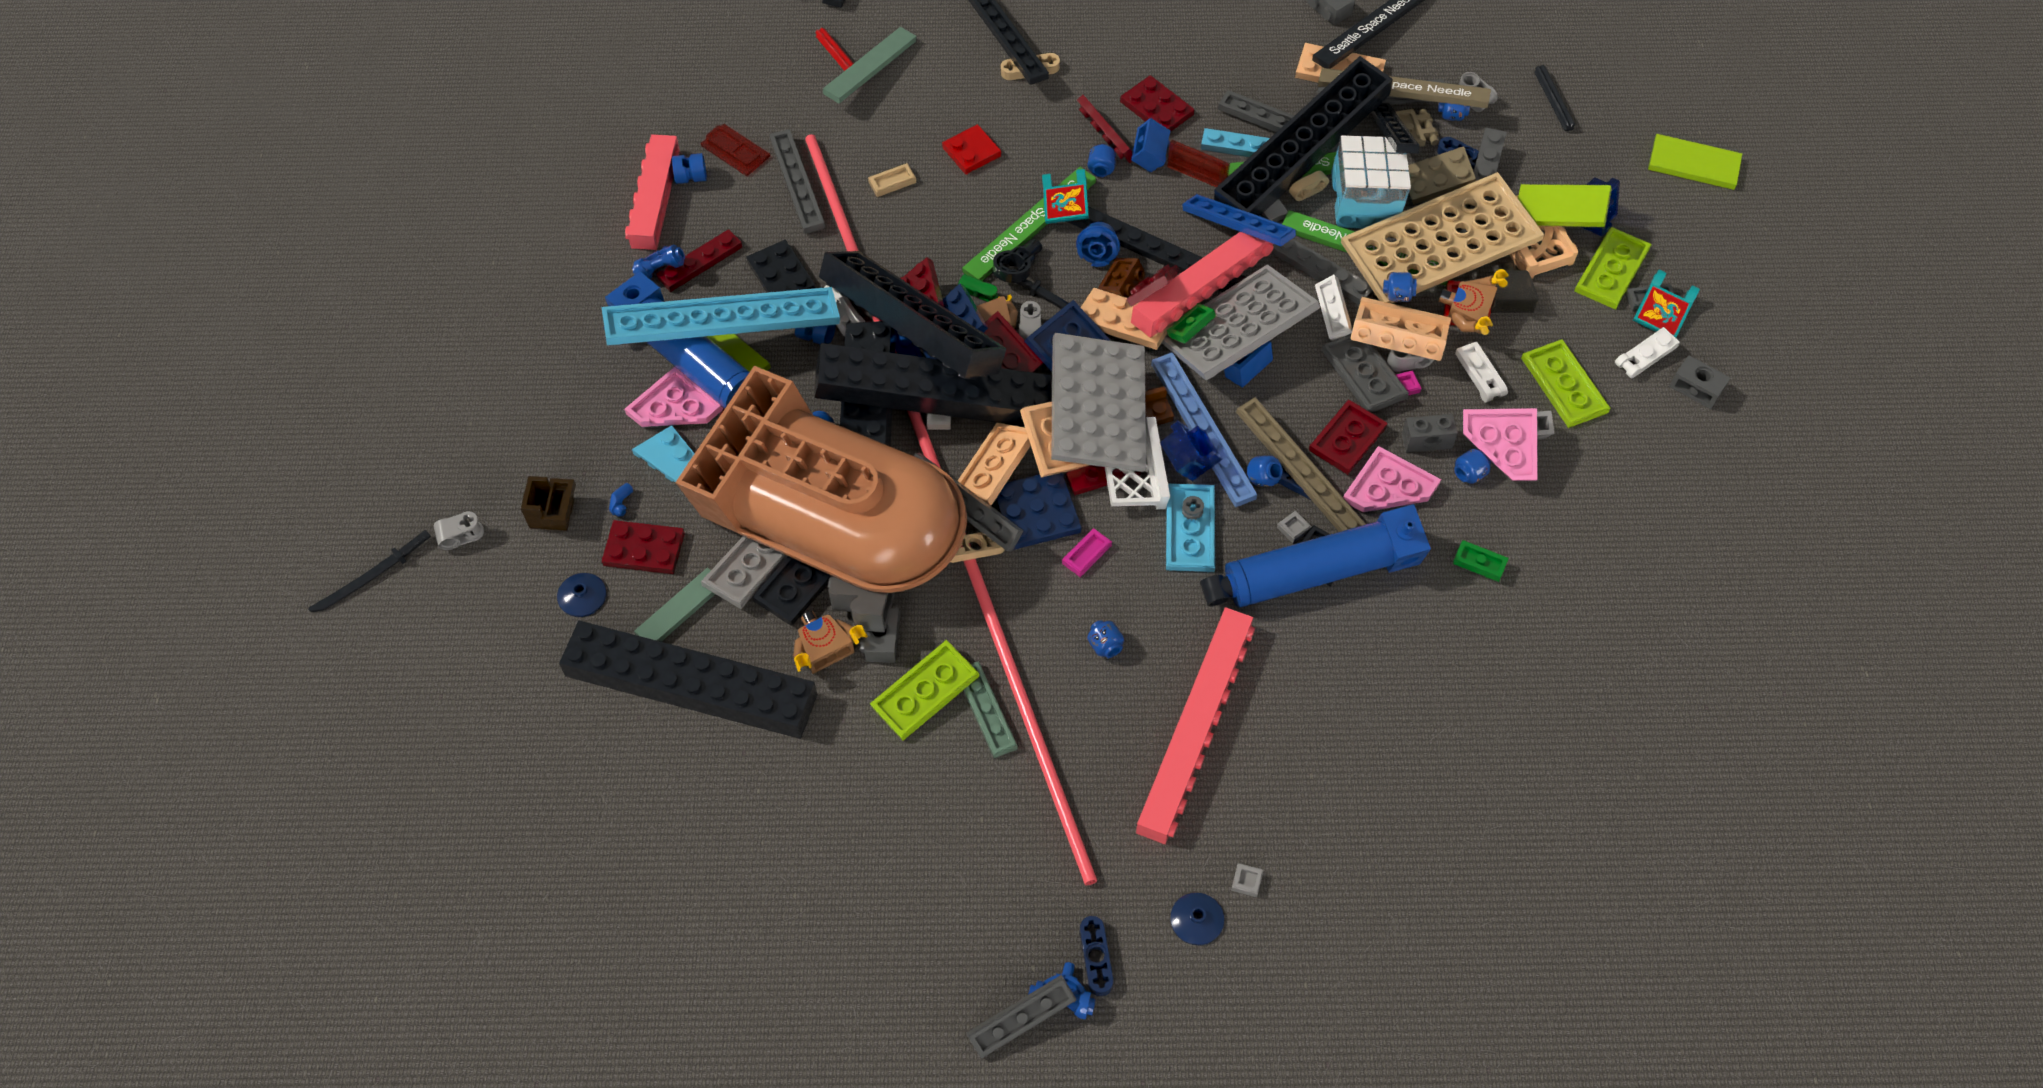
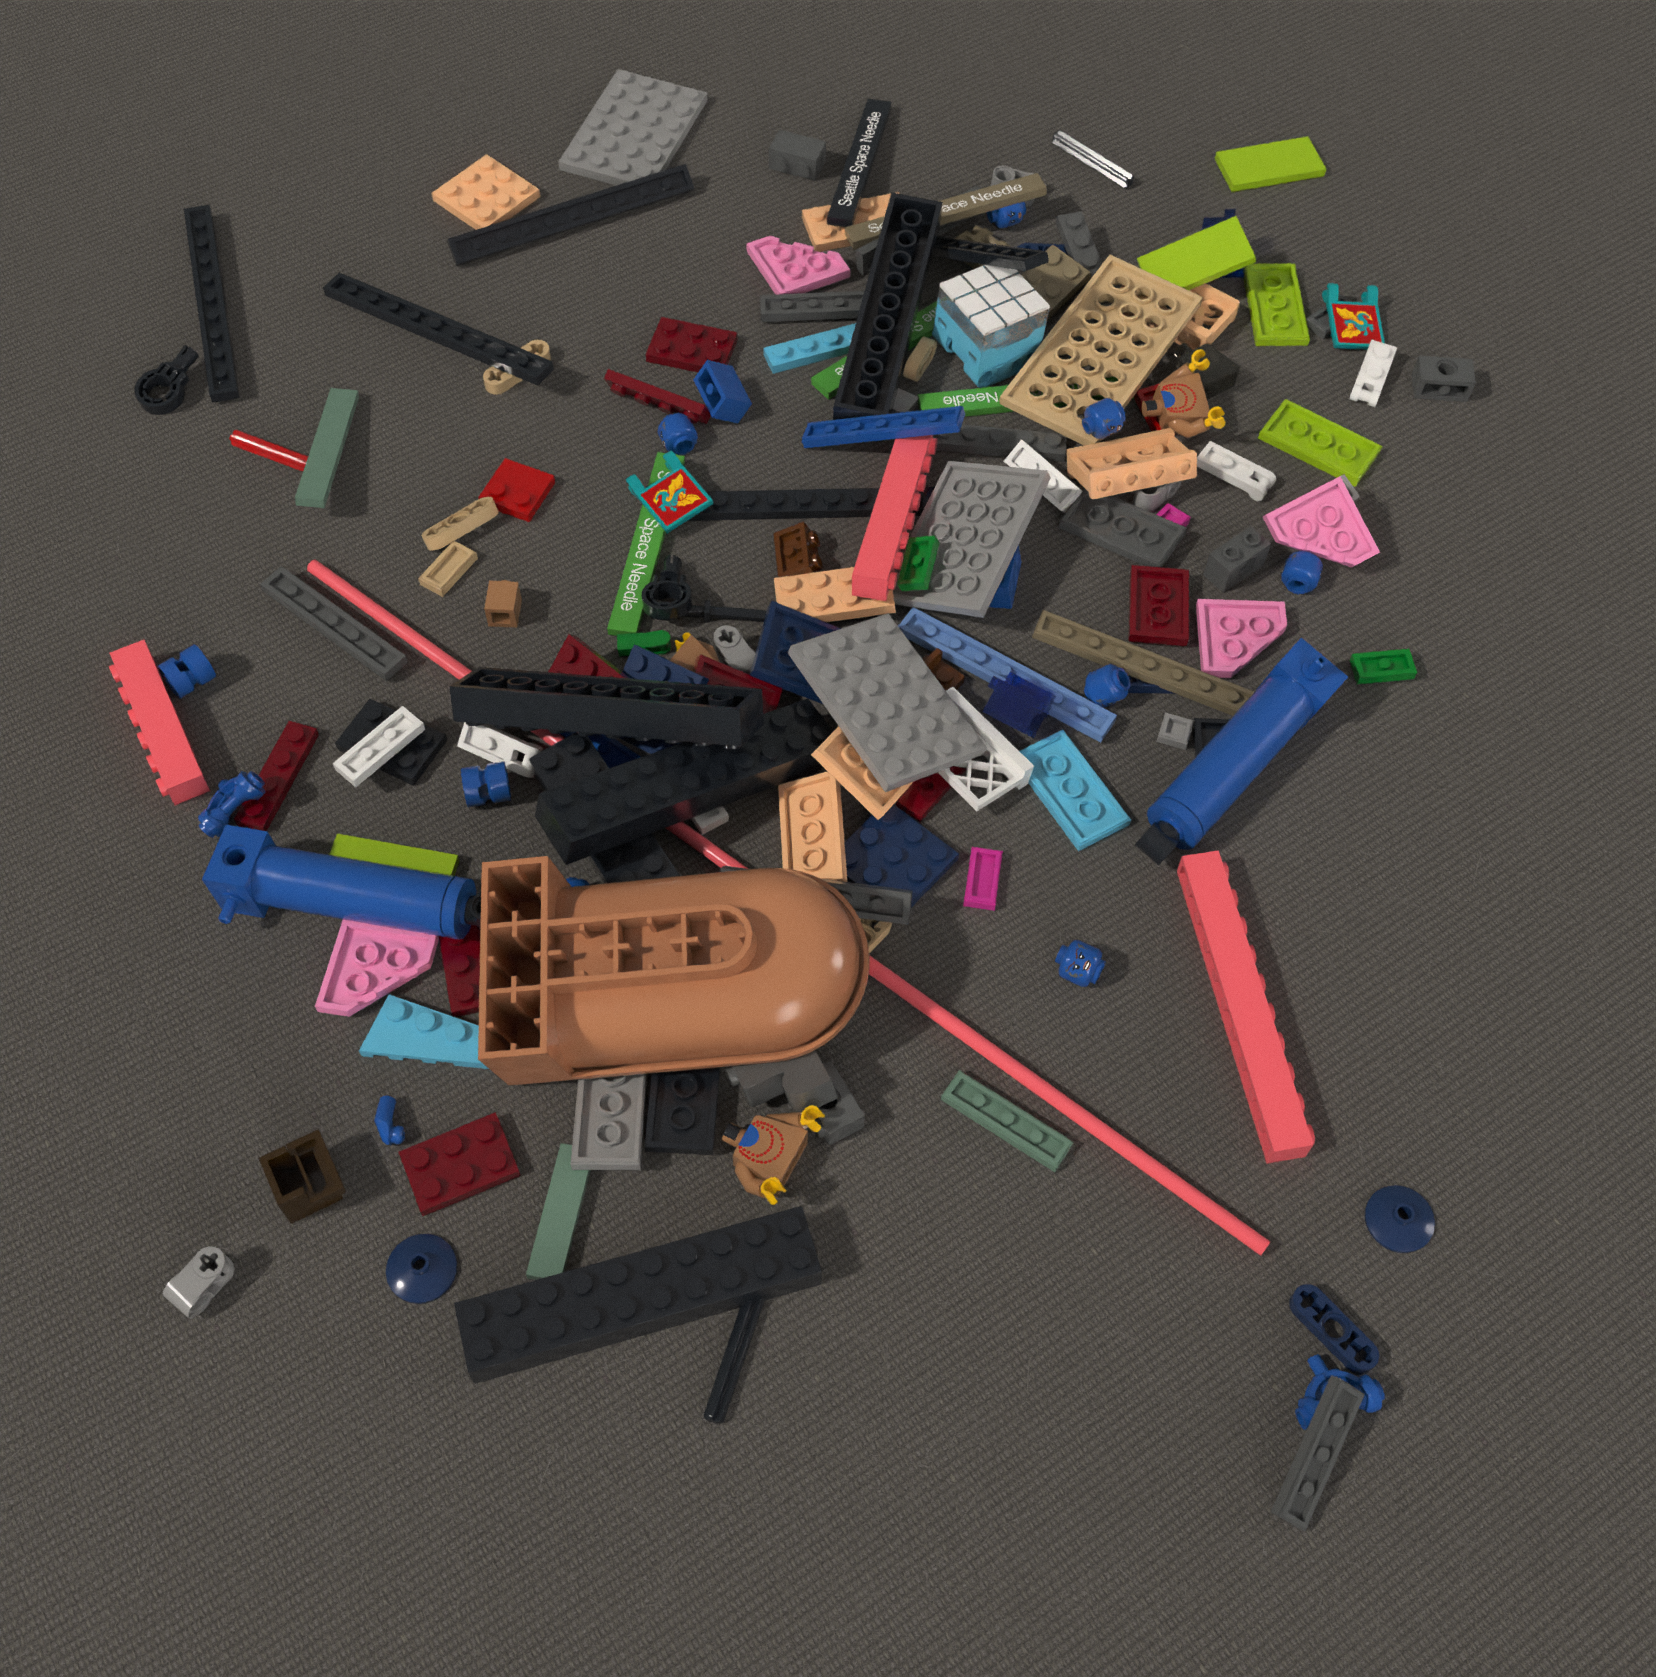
camera: 35 degrees left, 0 degrees up
(372, 573) = (135, 1365): black sword -> none
(717, 750) = (732, 1361): none -> black axle
(719, 315) = (368, 830): medium azure plate -> none
(734, 149) = (224, 623): clear red piece -> none
(766, 270) = (379, 746): none -> white plate
(907, 219) = (503, 604): none -> medium nougat brick
(918, 154) = (460, 523): none -> tan beam
(924, 690) = (925, 1140): lime tile -> none
(1098, 244) = (747, 526): blue cone -> none
(1152, 284) = (849, 540): dark red plate -> none
(1187, 504) = (1059, 772): dark grey bush -> none
(1197, 164) = (790, 389): clear red piece -> none
(1247, 880) = (1417, 1143): light grey tile -> none
(1270, 81) = (796, 266): none -> bright pink plate

